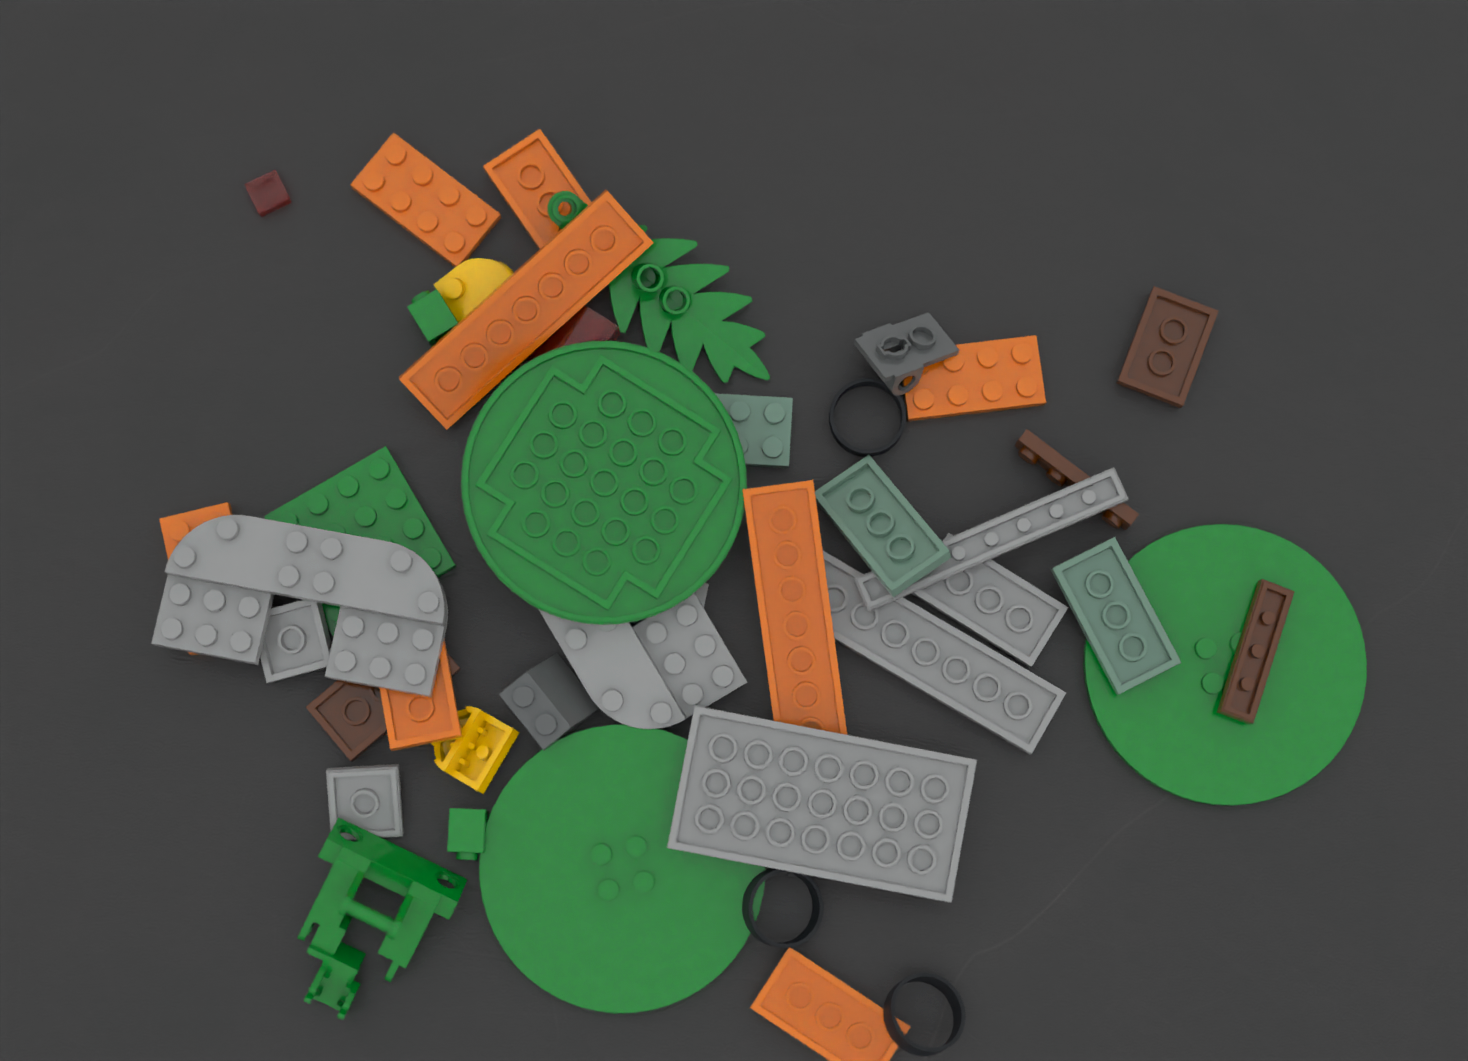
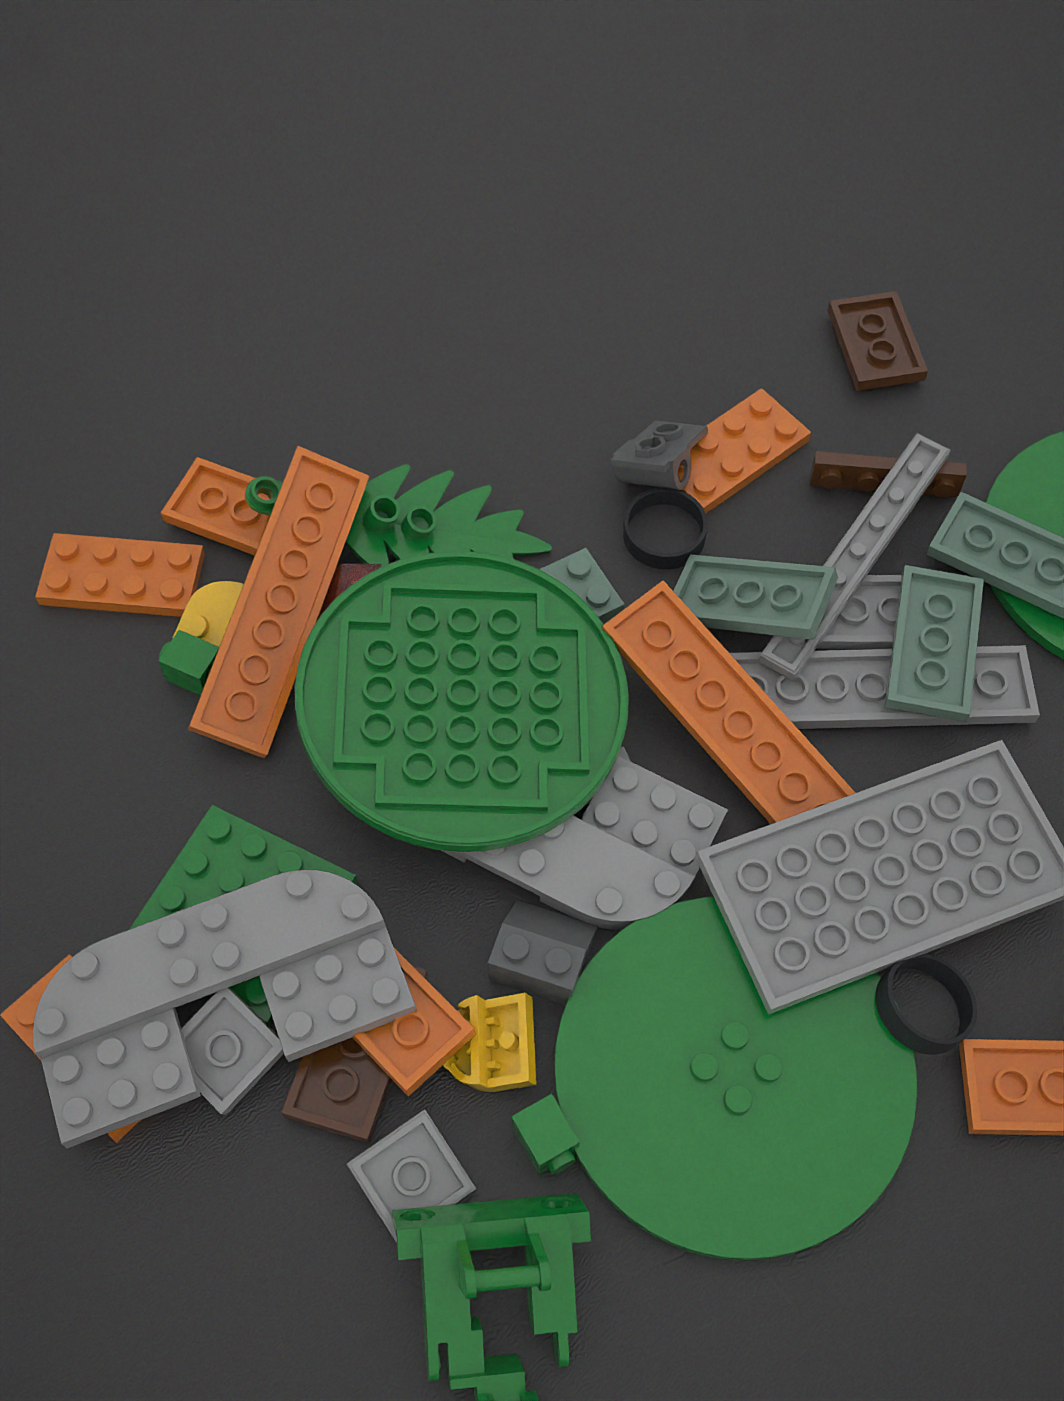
camera: 30 degrees left, 20 degrees down
(993, 650) = (935, 643): none -> sand green plate

